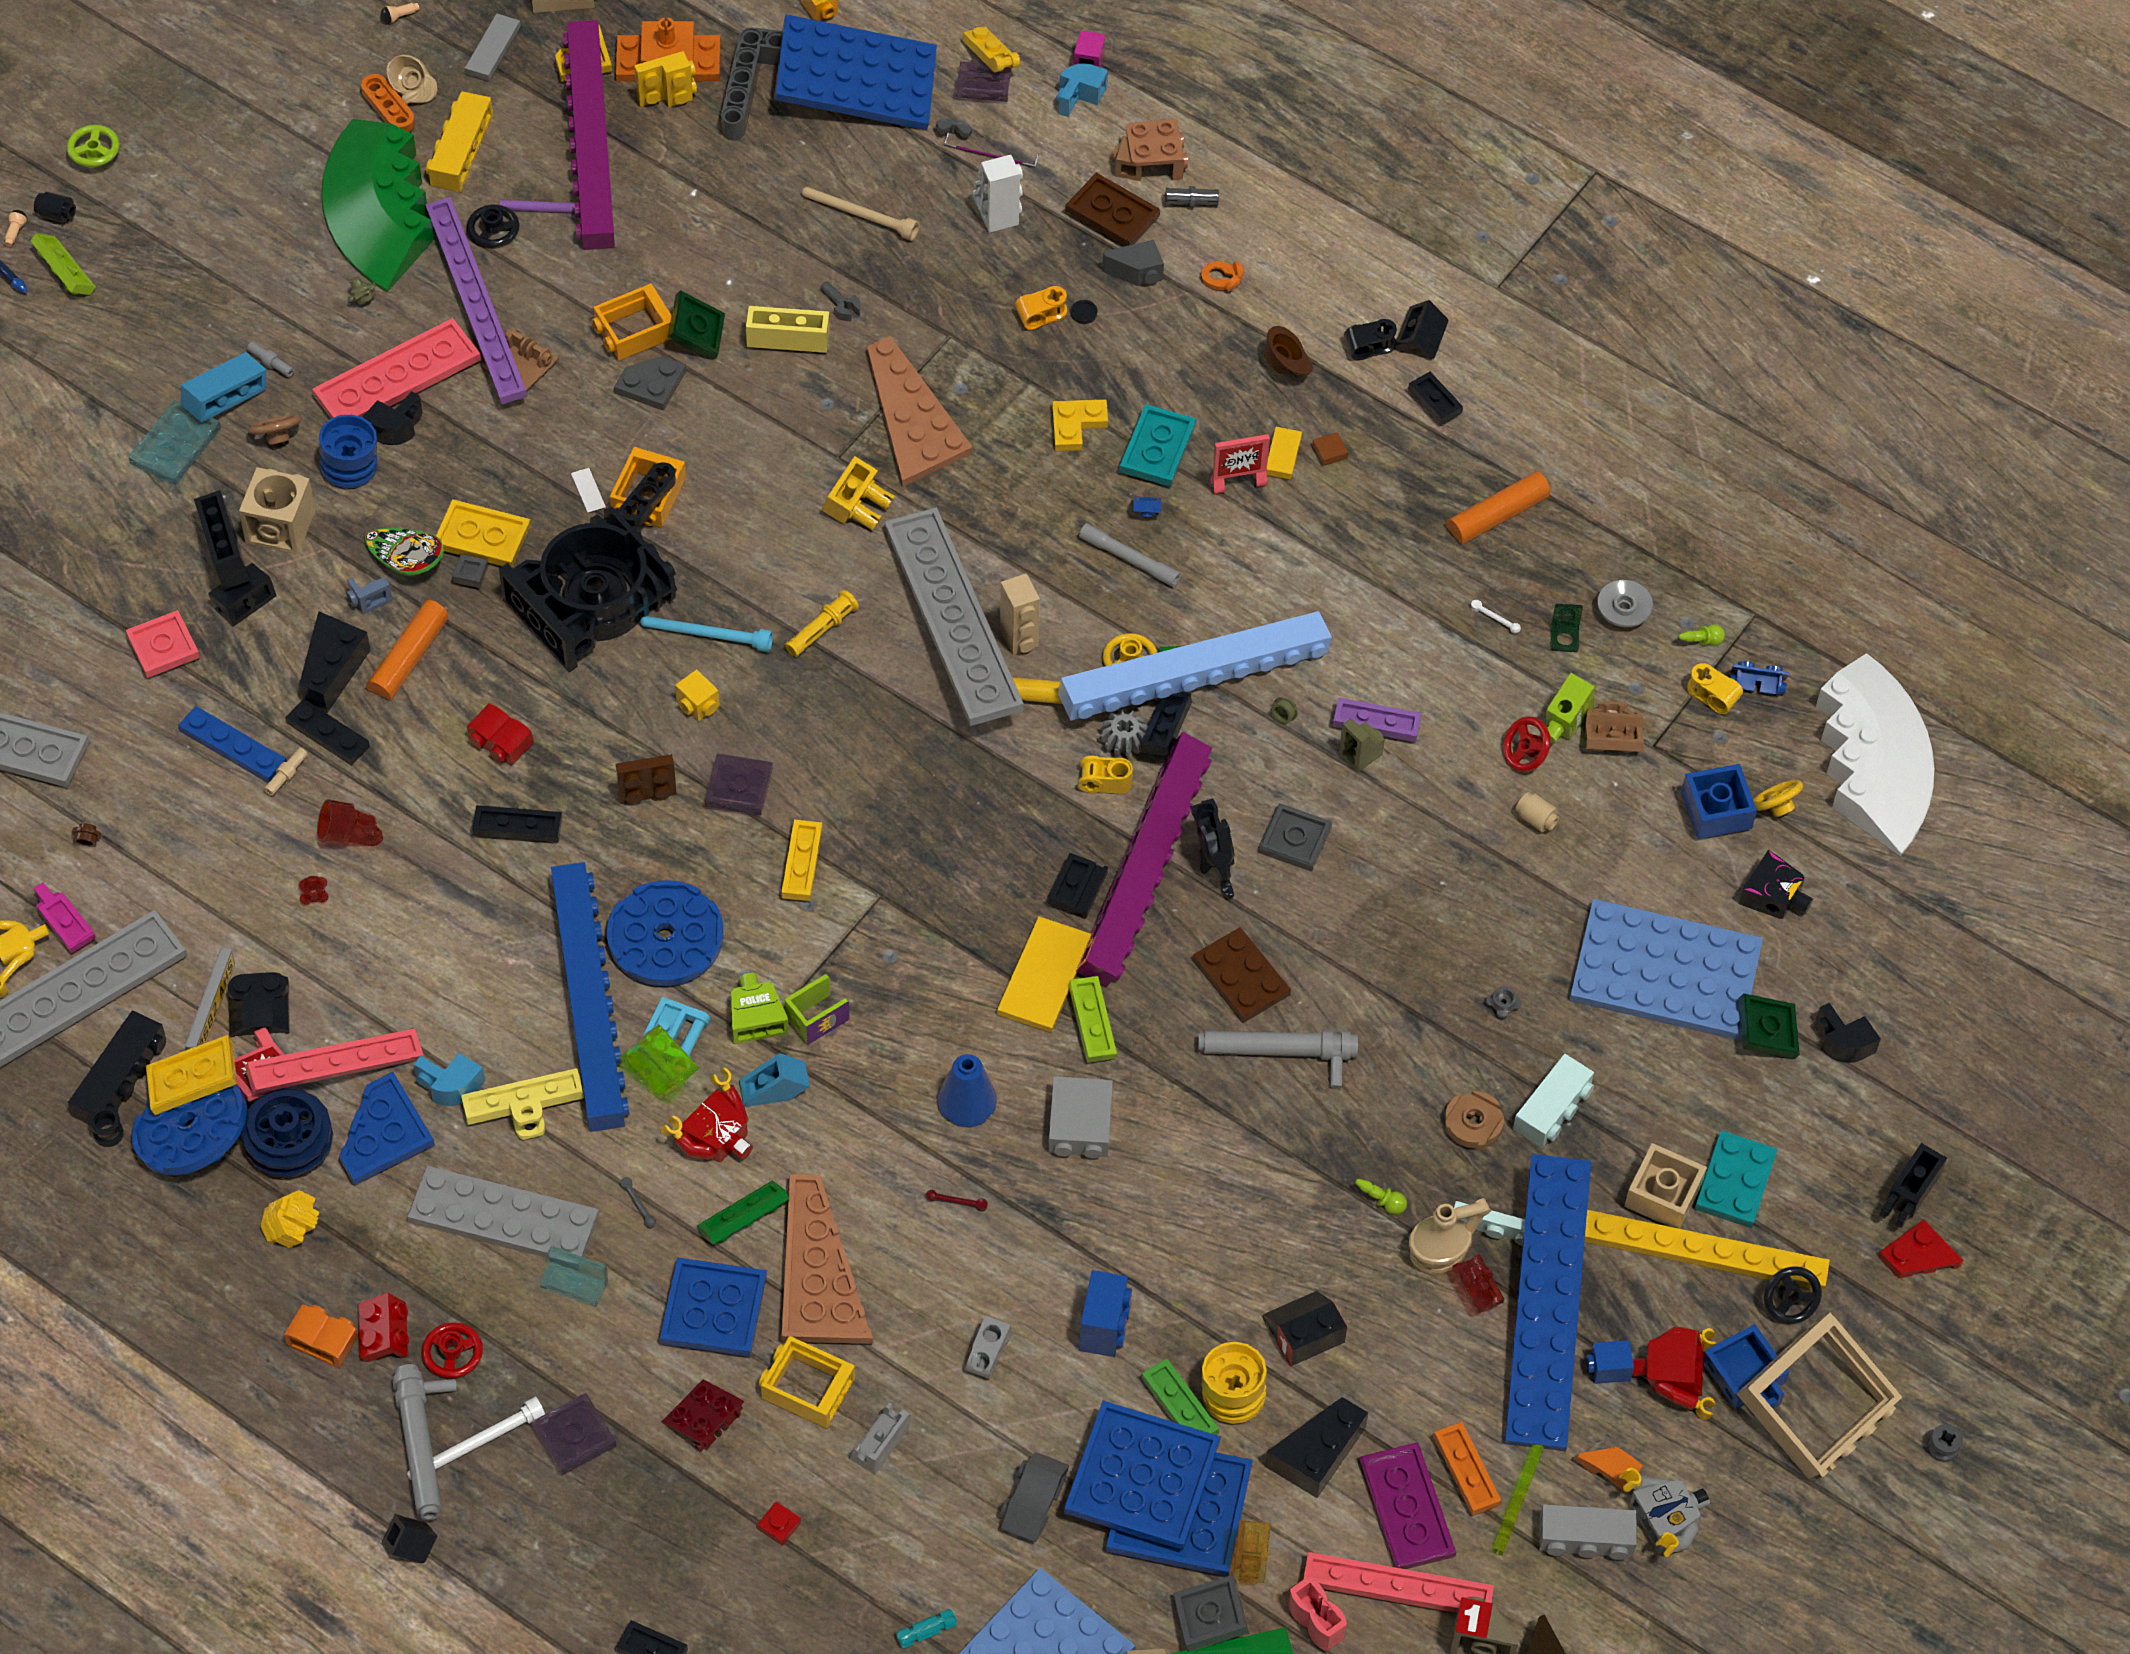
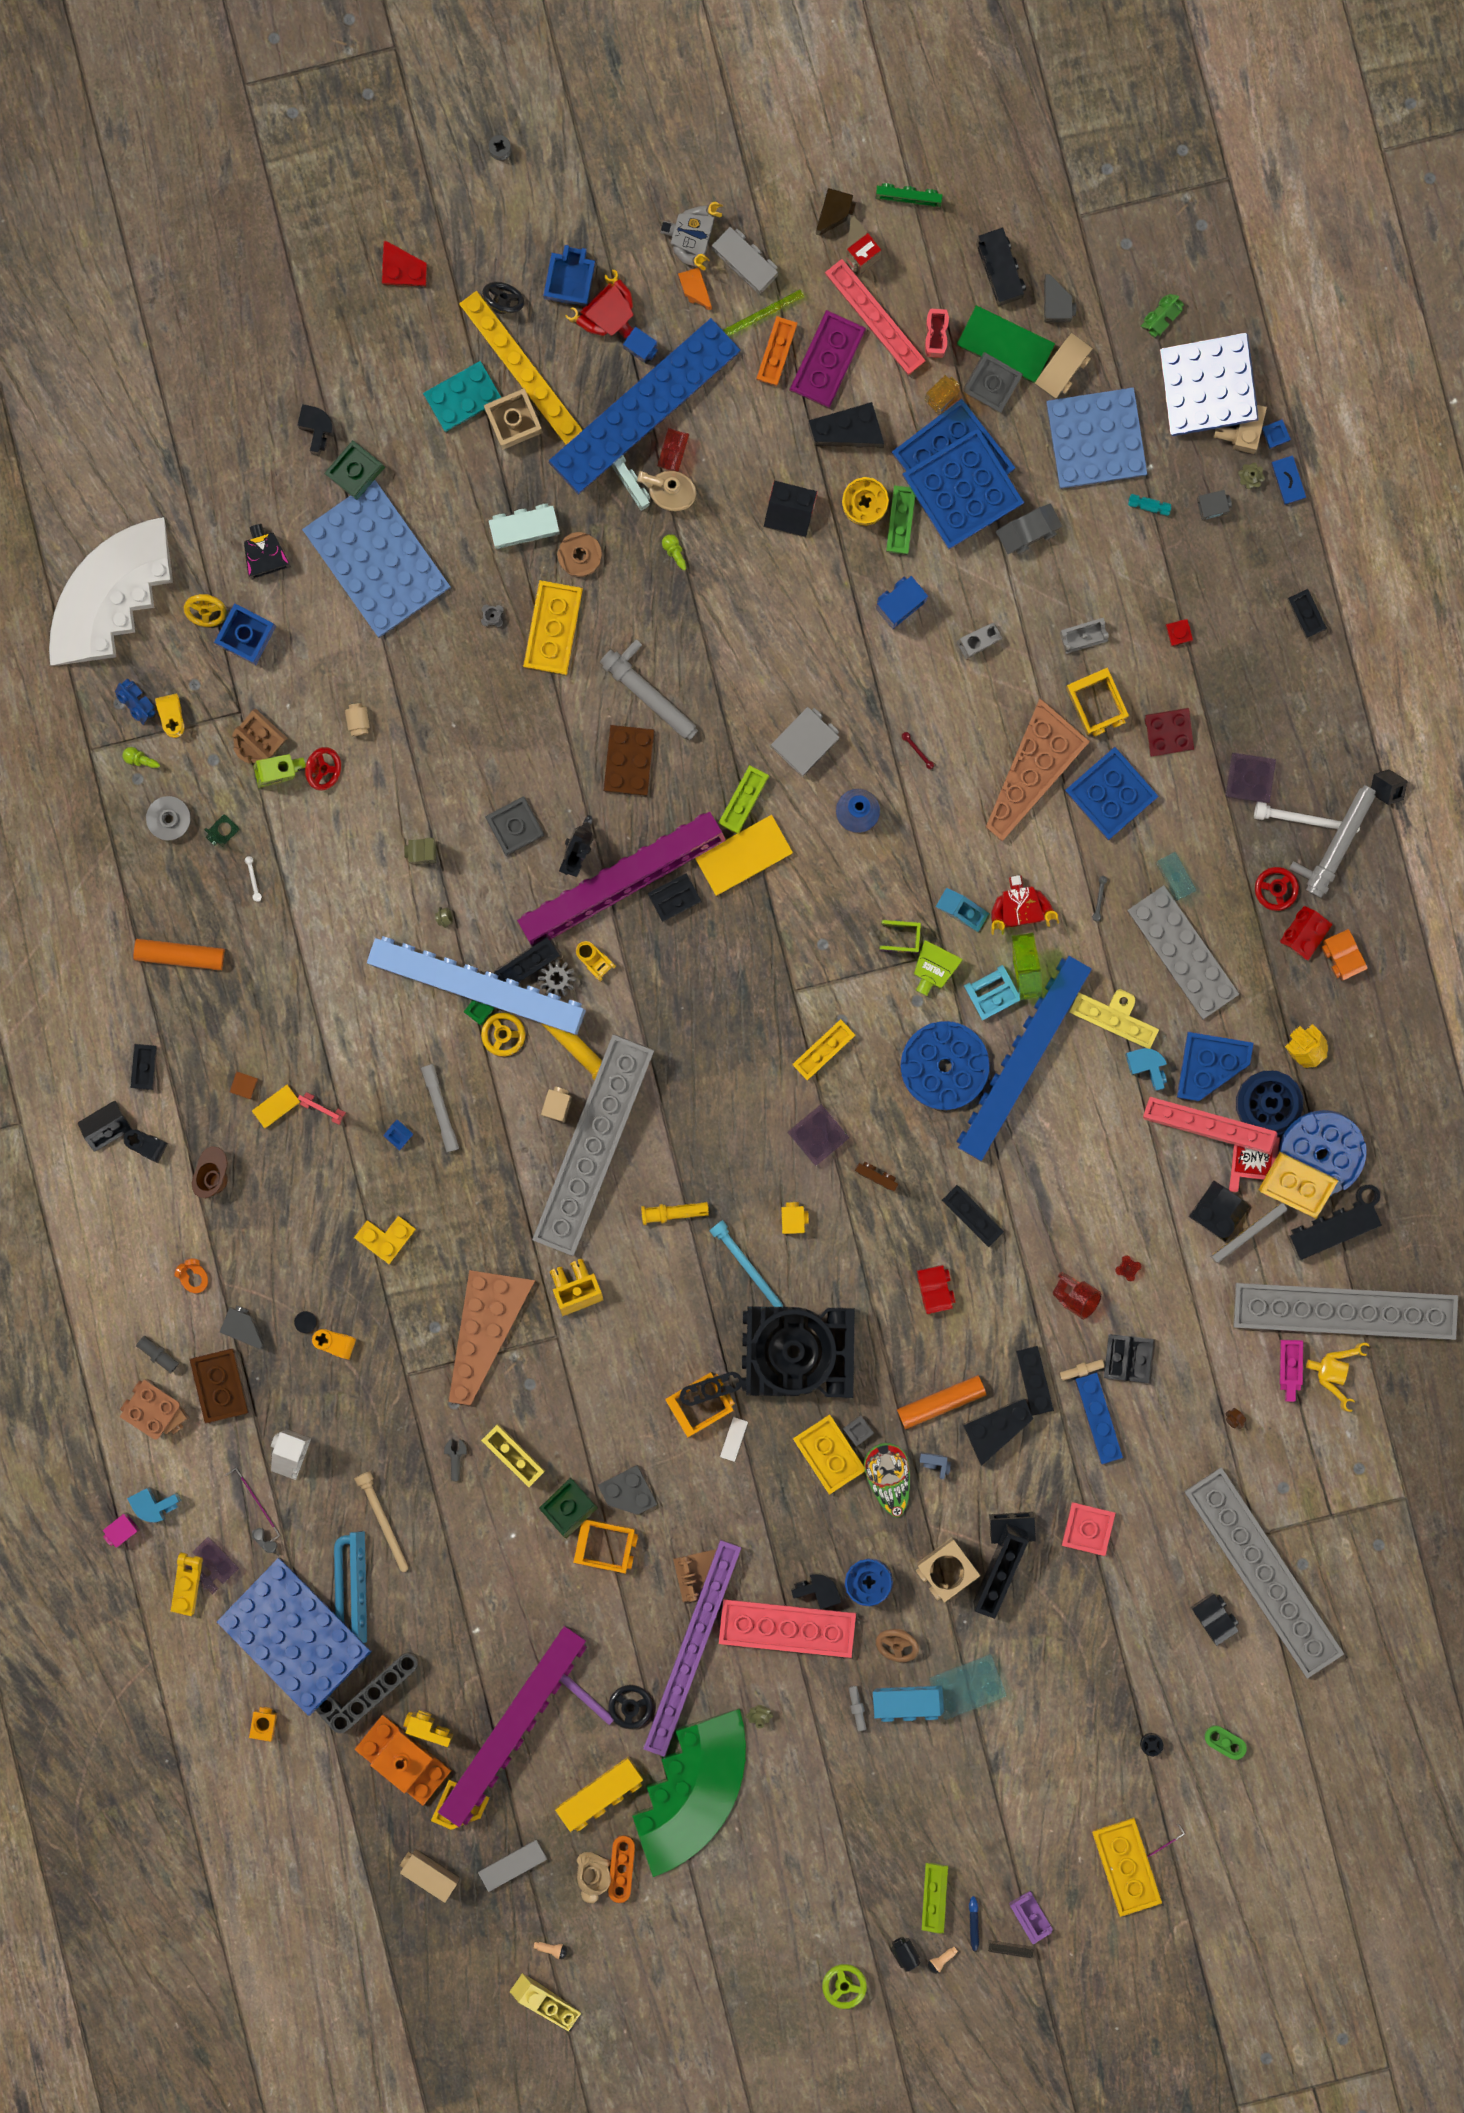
camera: 135 degrees left, 30 degrees up
(244, 815) = (1129, 1358): none -> black slope
(743, 1212) = (1048, 839): green plate -> none
(839, 138) = (358, 1582): none -> dark azure piece
(1158, 445) = (351, 1175): teal plate -> none
(1389, 721) = (394, 863): medium lavender plate -> none
(1434, 1037) = (553, 627): none -> yellow tile
(1860, 1365) = (554, 254): tan window -> none
(1914, 1183) = (371, 303): black hinge -> none

